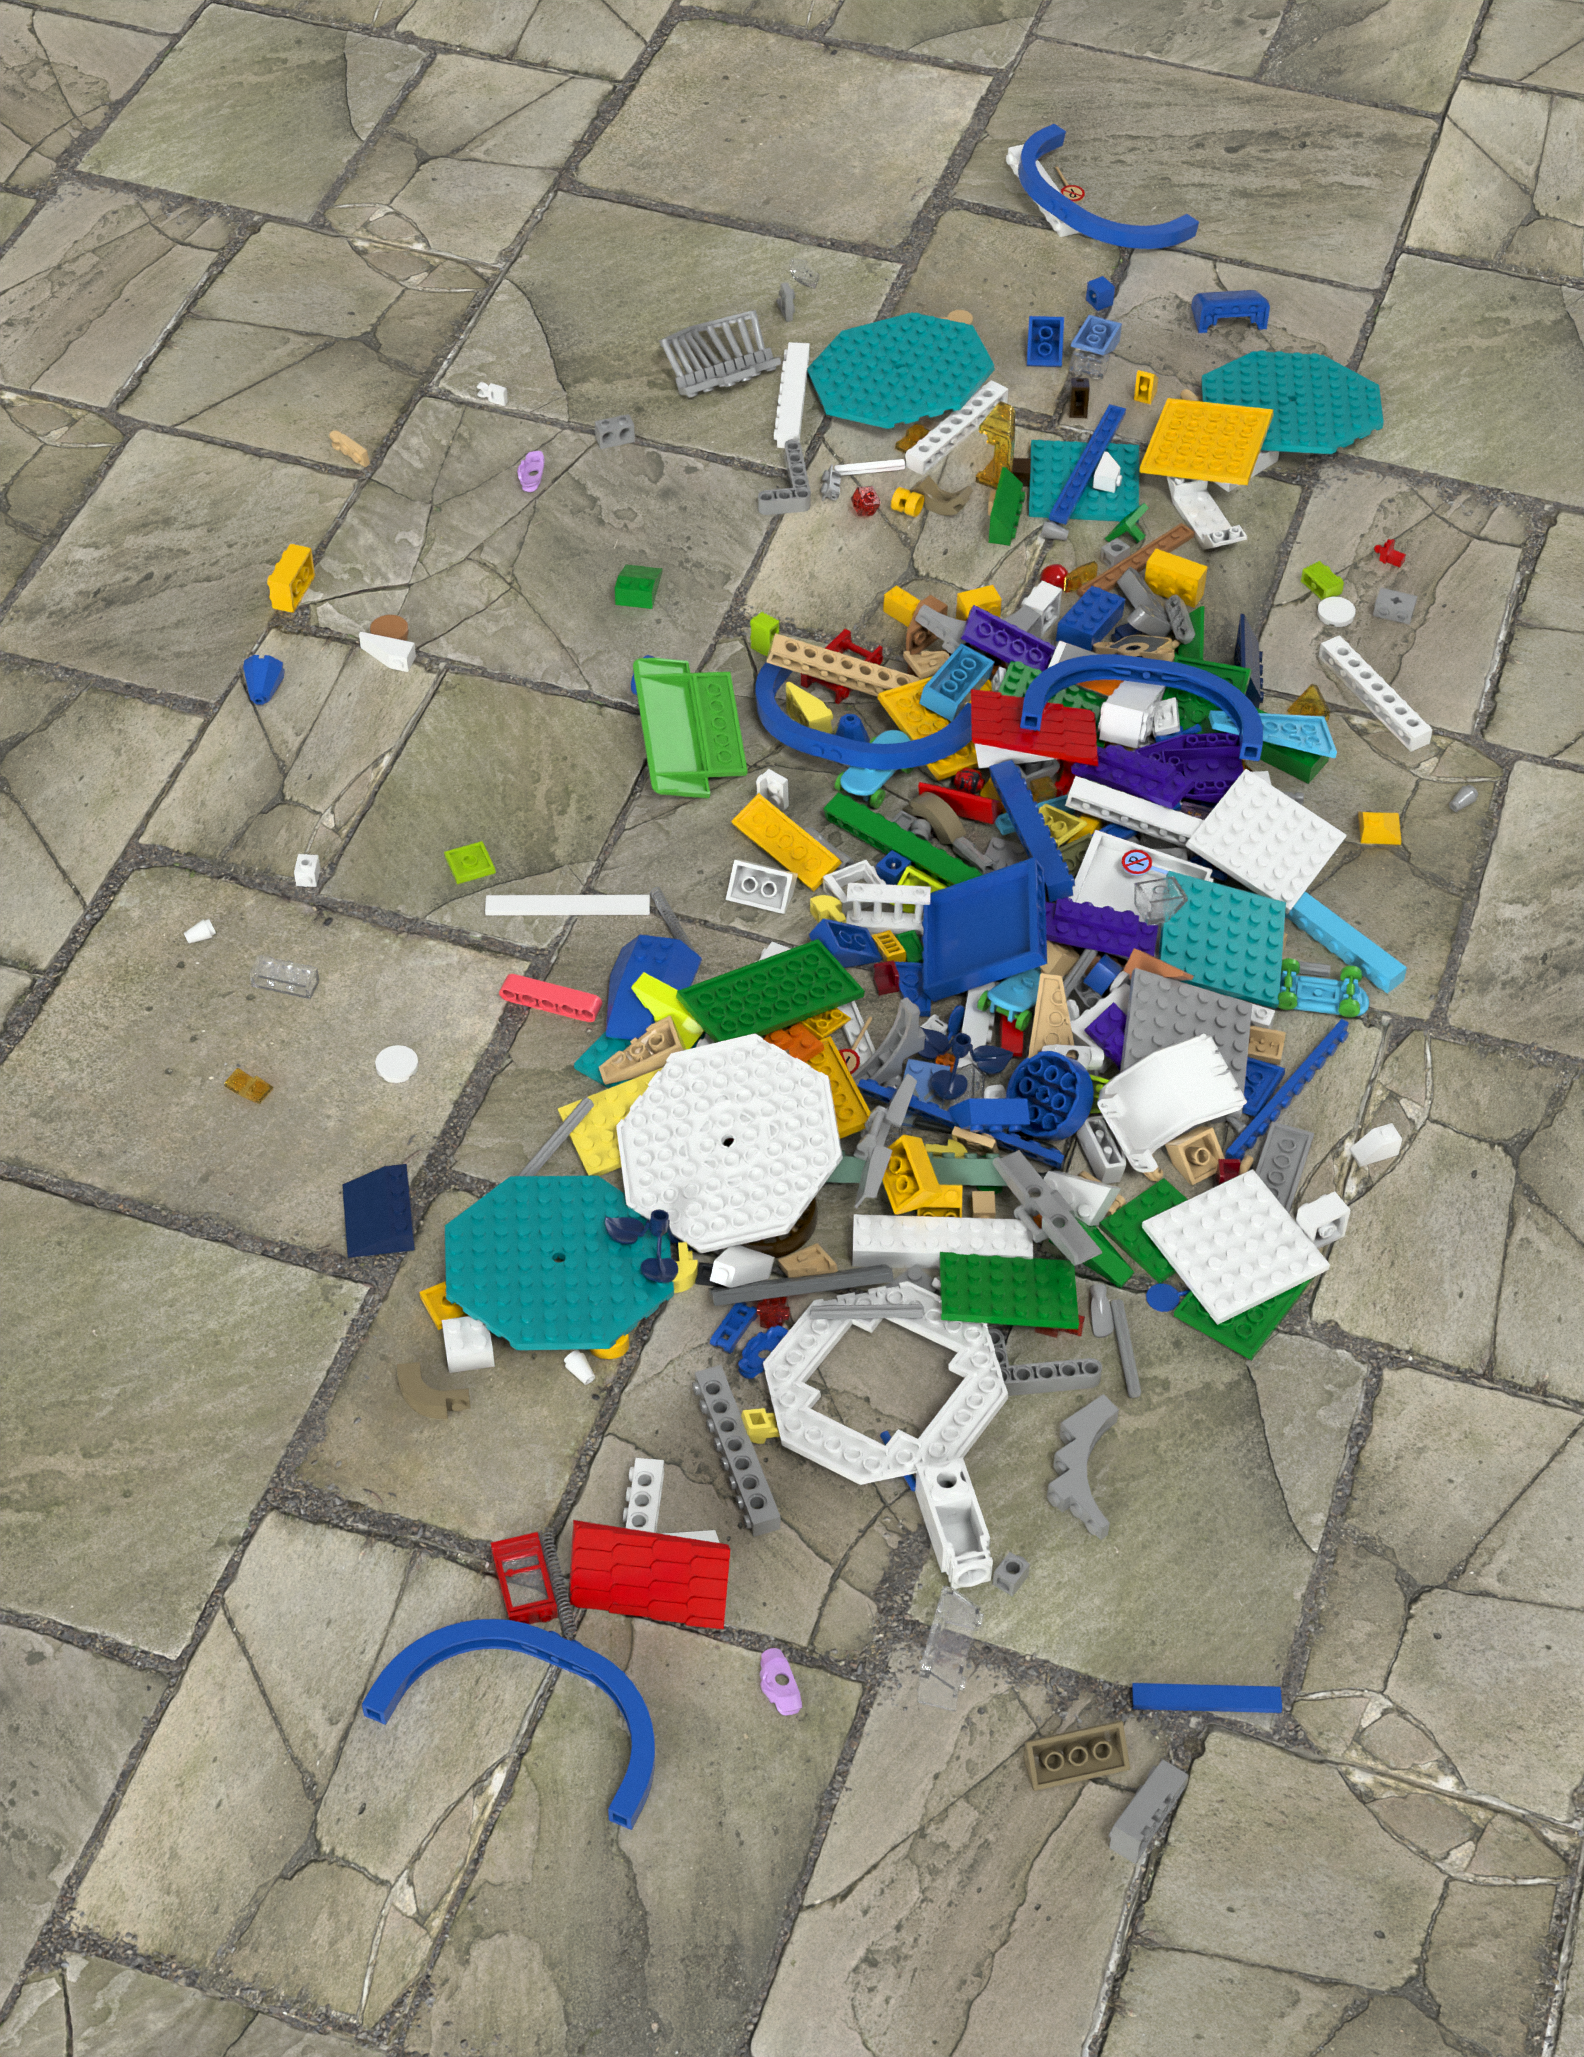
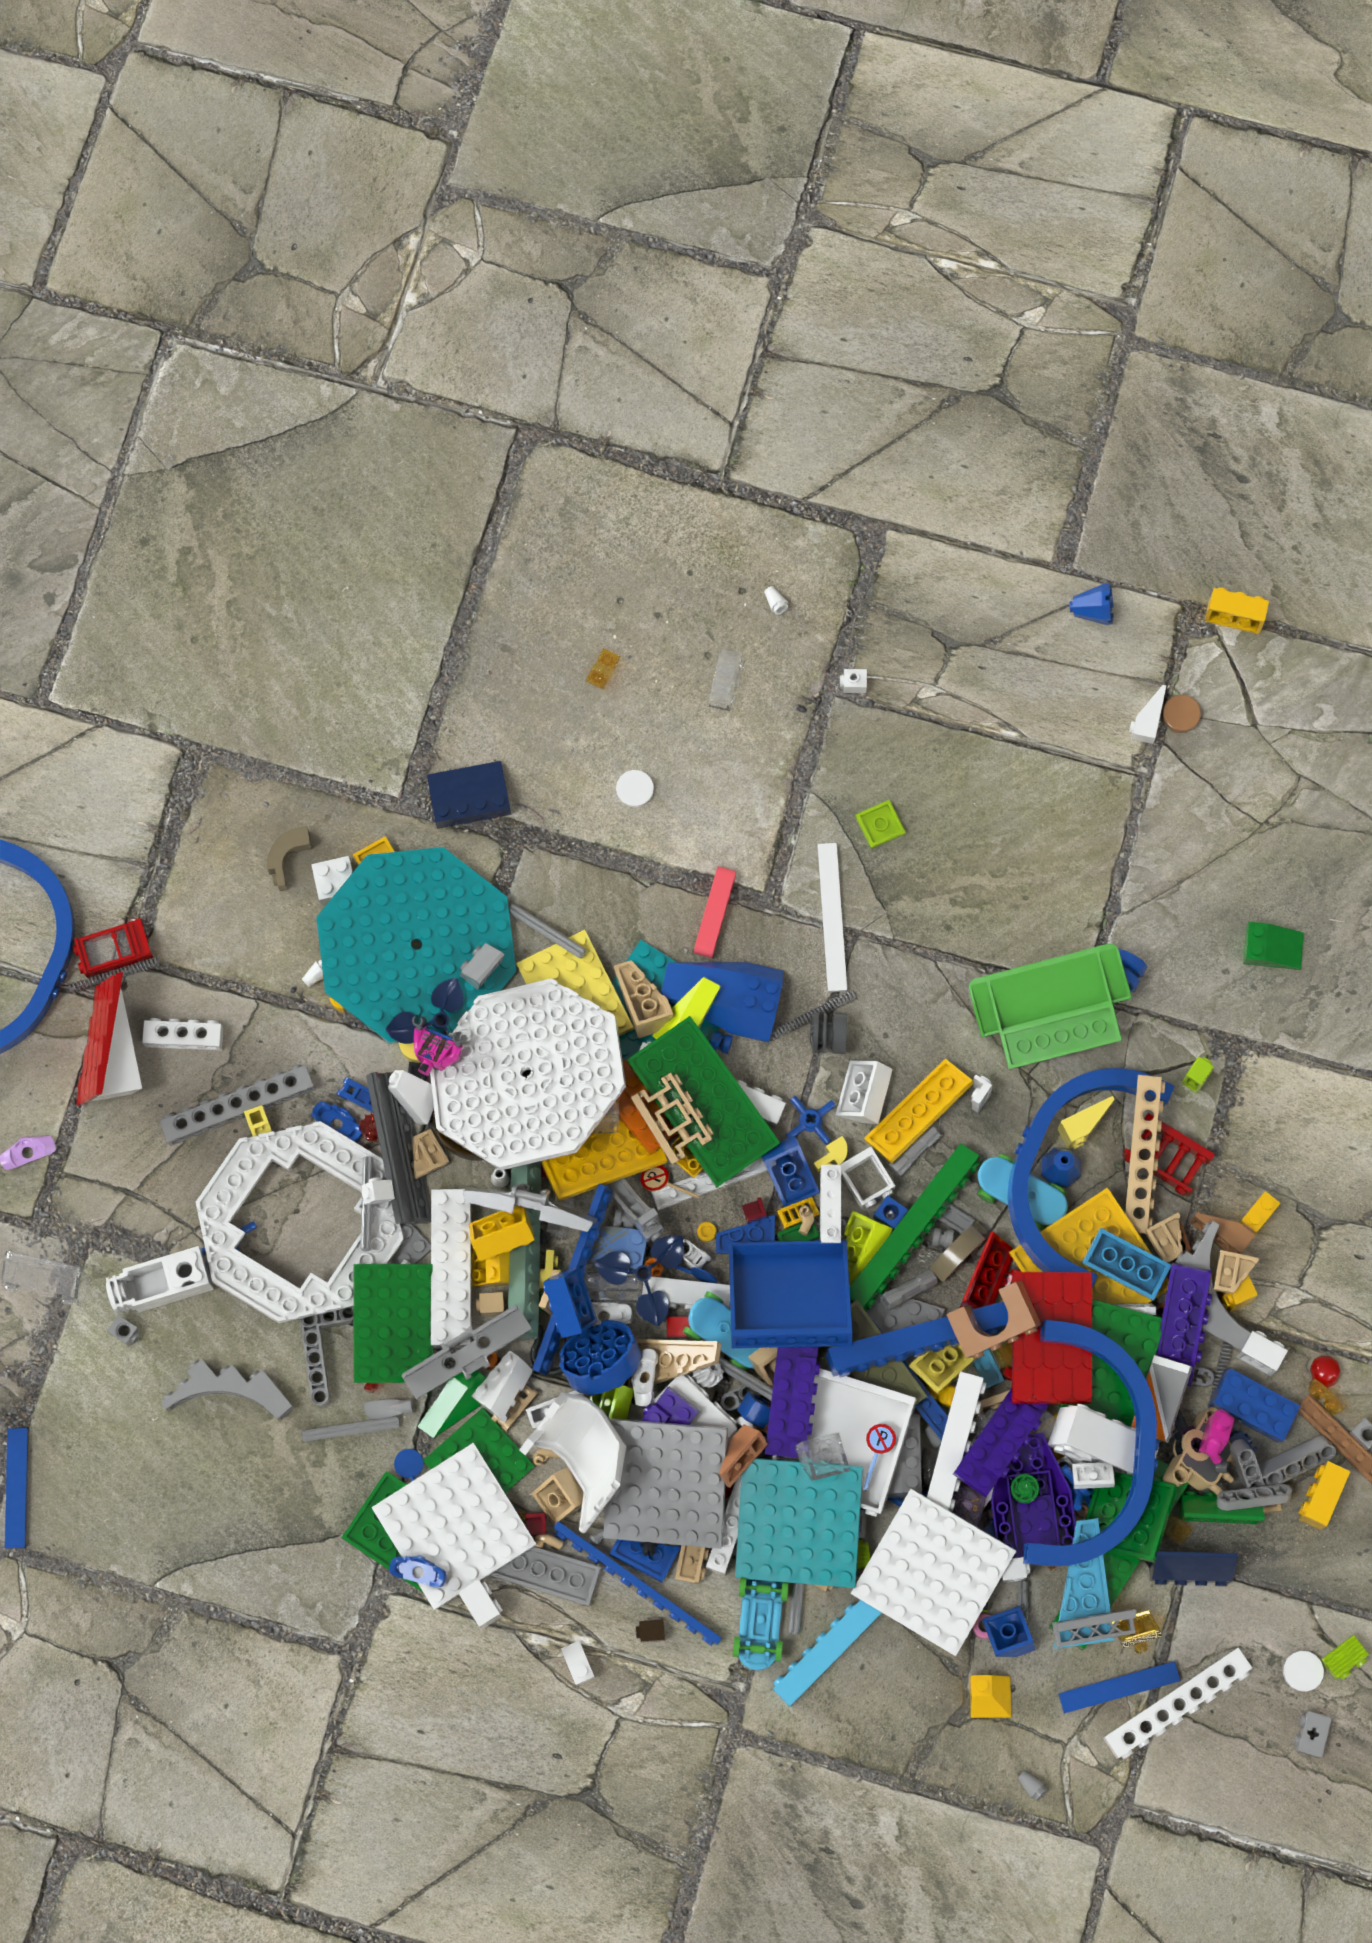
camera: 90 degrees right, 25 degrees up
(595, 1187) = (481, 966): none -> light grey slope
(689, 1233) = (435, 1048): none -> torso
(698, 902) = (829, 1033): none -> dark grey wheel
(789, 928) = (811, 1113): none -> blue bar
(796, 1026) = (660, 1125): none -> tan fence
(838, 1195) = (502, 1181): none -> white cone
(855, 1293) = (377, 1191): none -> white brick
(893, 933) = (807, 1219): none -> tan arm
(970, 594) = (1232, 1270): none -> tan wing
(1023, 730) = (1021, 1320): none -> medium nougat arch
(1124, 628) = (1217, 1436): none -> dark pink torso
(1183, 763) = (1024, 1488): none -> green wheel
(1251, 1076) = (648, 1547): none -> black piece
(1293, 1257) = (403, 1568): none -> piece
(1313, 722) = (1096, 1620): none -> light grey fence
(1319, 796) = (1009, 1633): none -> blue slope
(1336, 1082) = (650, 1631): none -> dark brown brick
(1362, 735) = (1119, 1687): none -> blue tile

